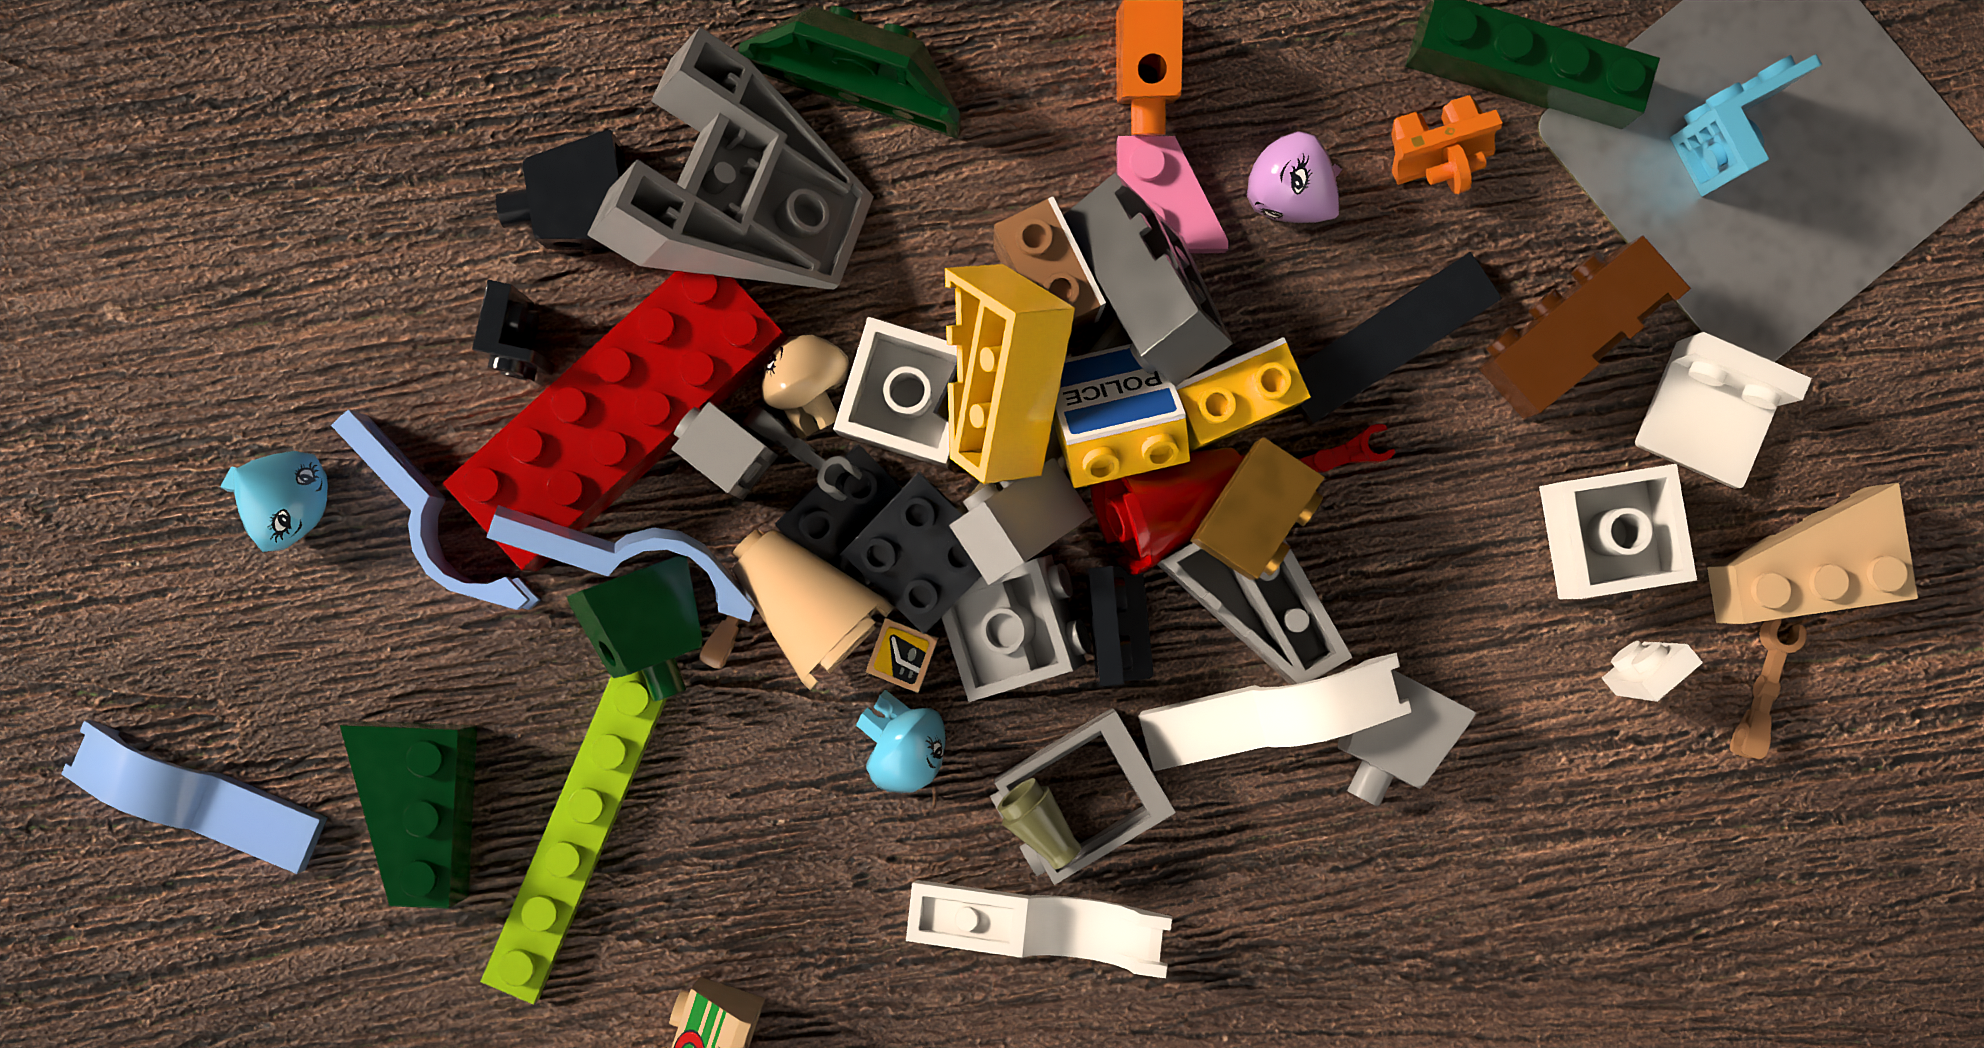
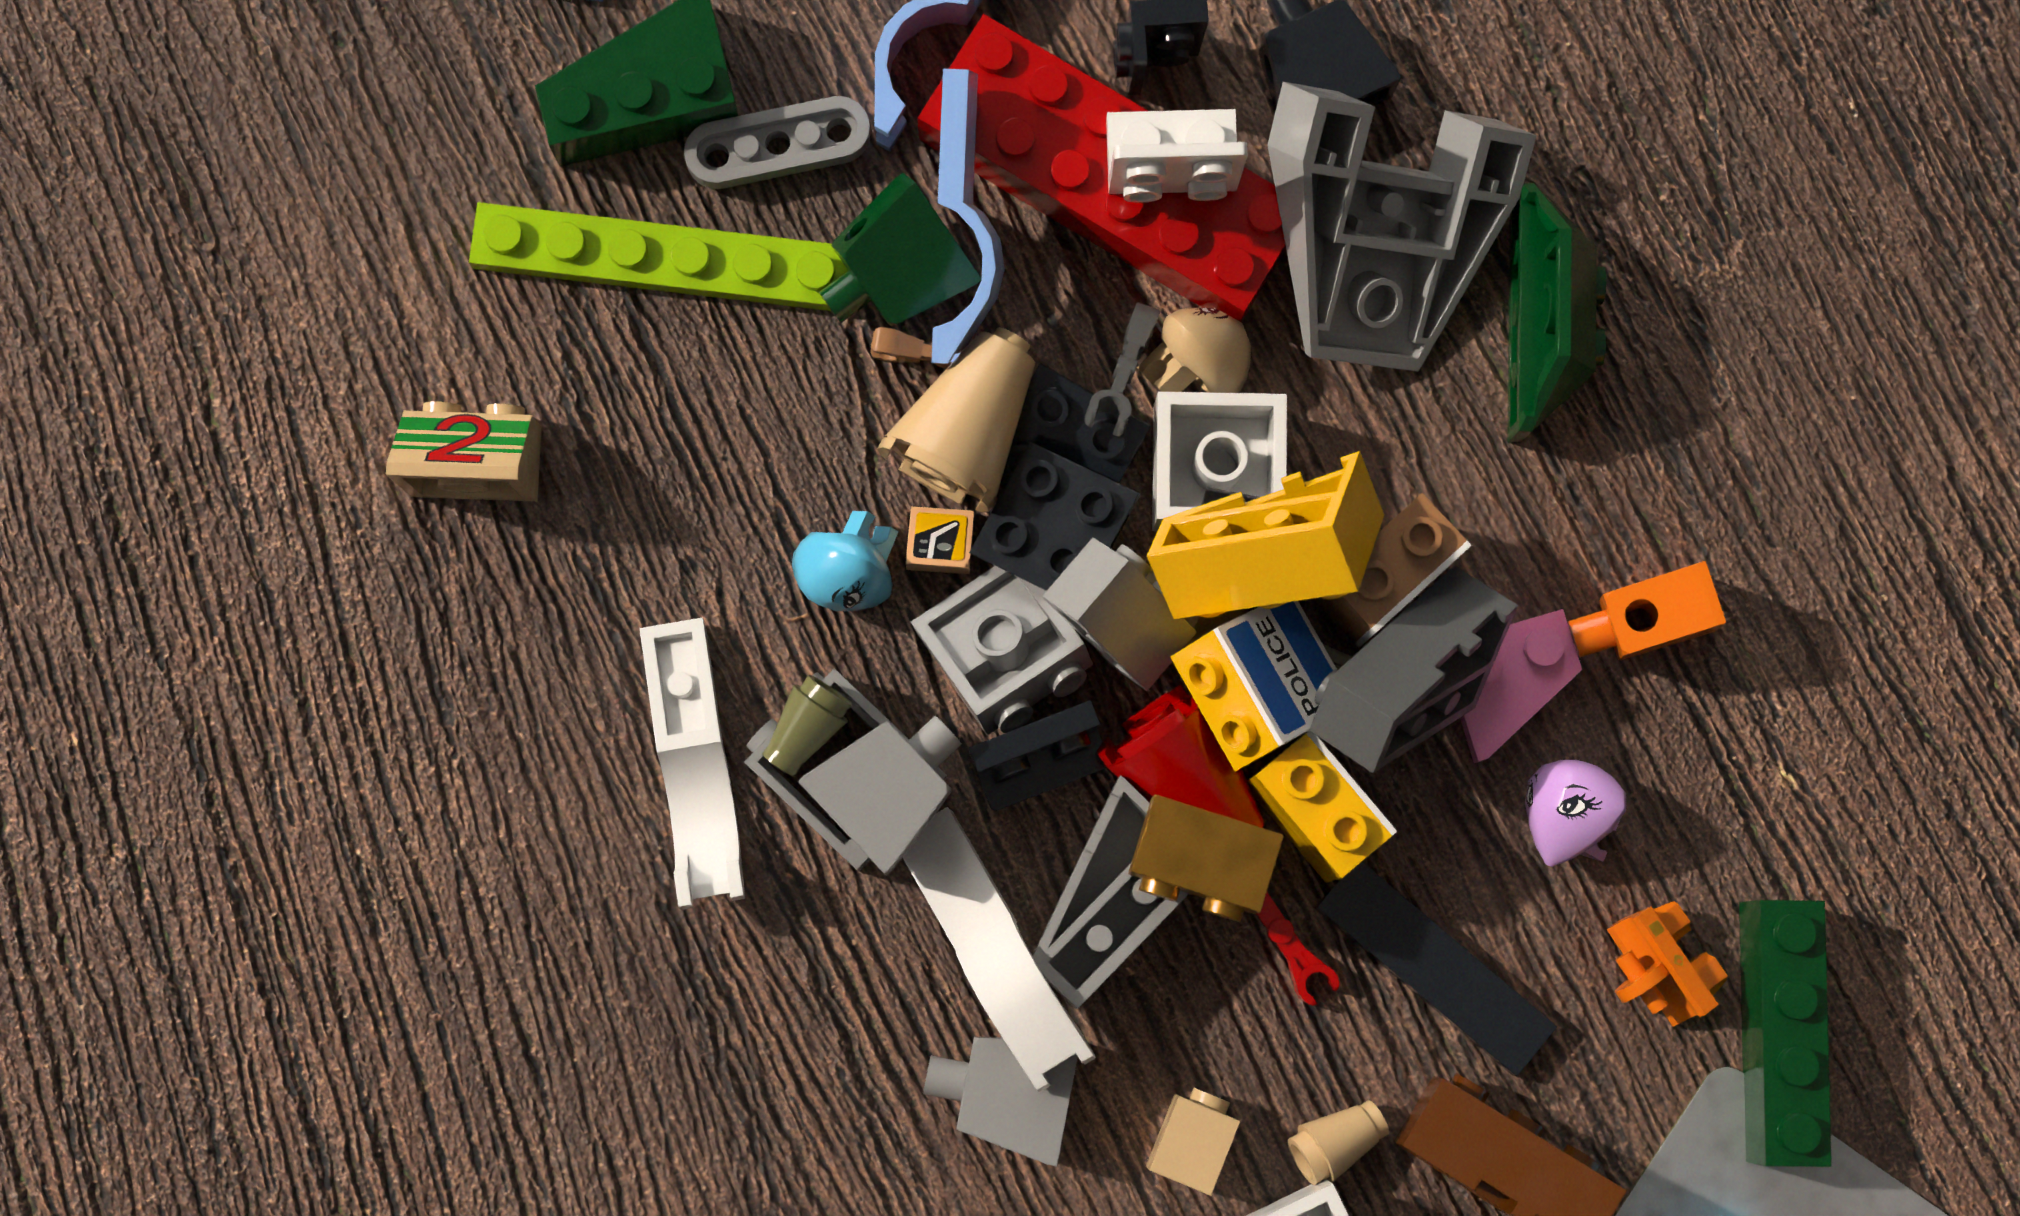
camera: 75 degrees right, 5 degrees down
(491, 721) = (748, 135): none -> light grey plate
(623, 351) = (1174, 154): none -> white bracket
(722, 450) = (1101, 288): light grey brick -> none
(1117, 771) = (885, 788): none -> light grey torso
(1482, 588) = (1194, 1141): none -> tan brick
(1514, 466) = (1336, 1141): none -> tan cone

